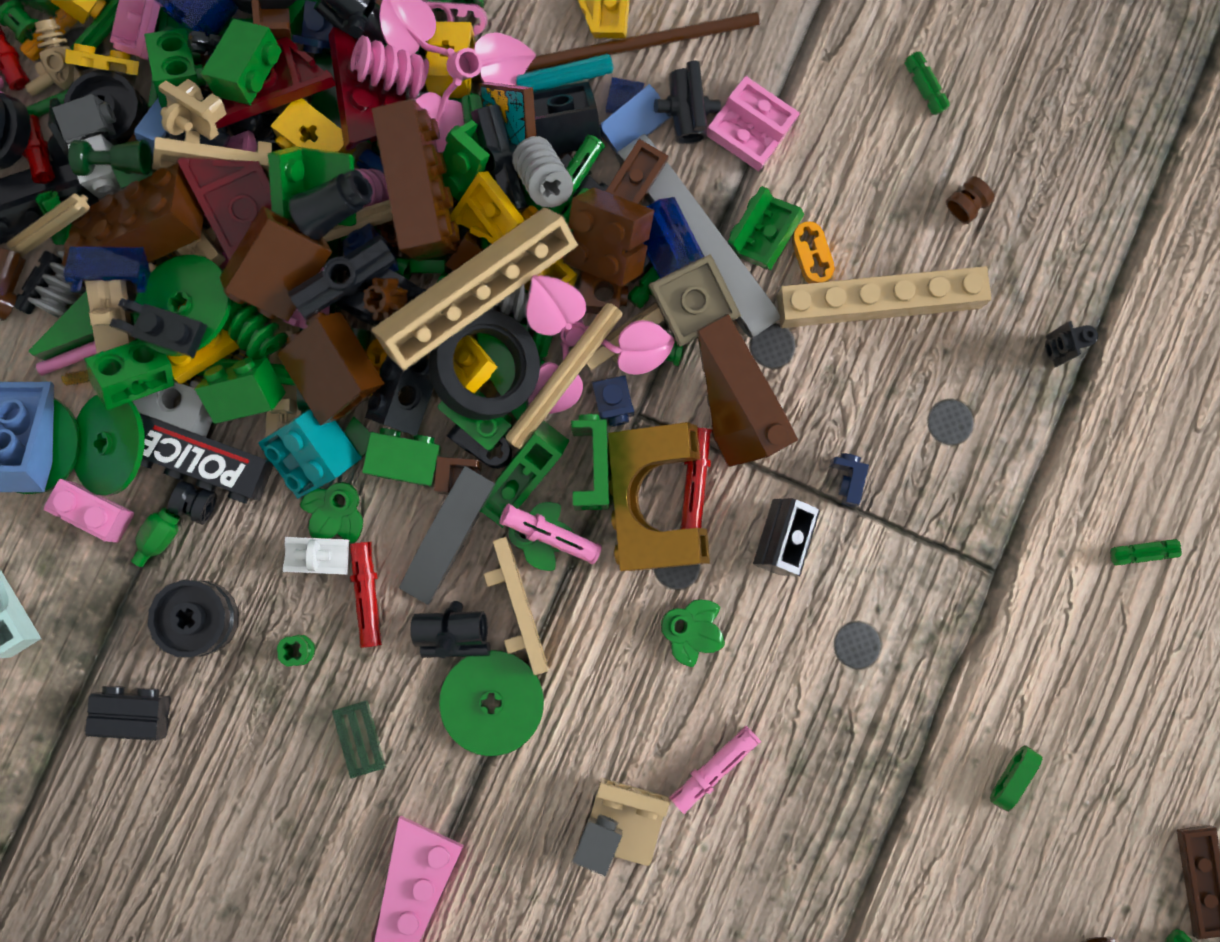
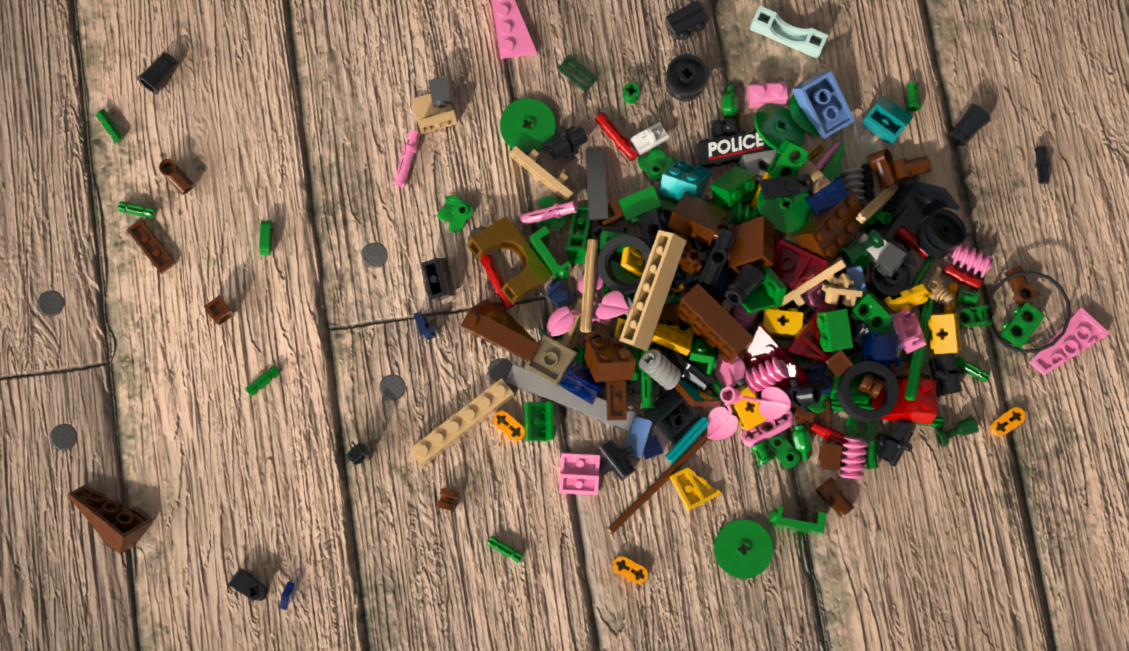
camera: 145 degrees right, 5 degrees down
(1160, 702) = (219, 310): none -> reddish brown brick

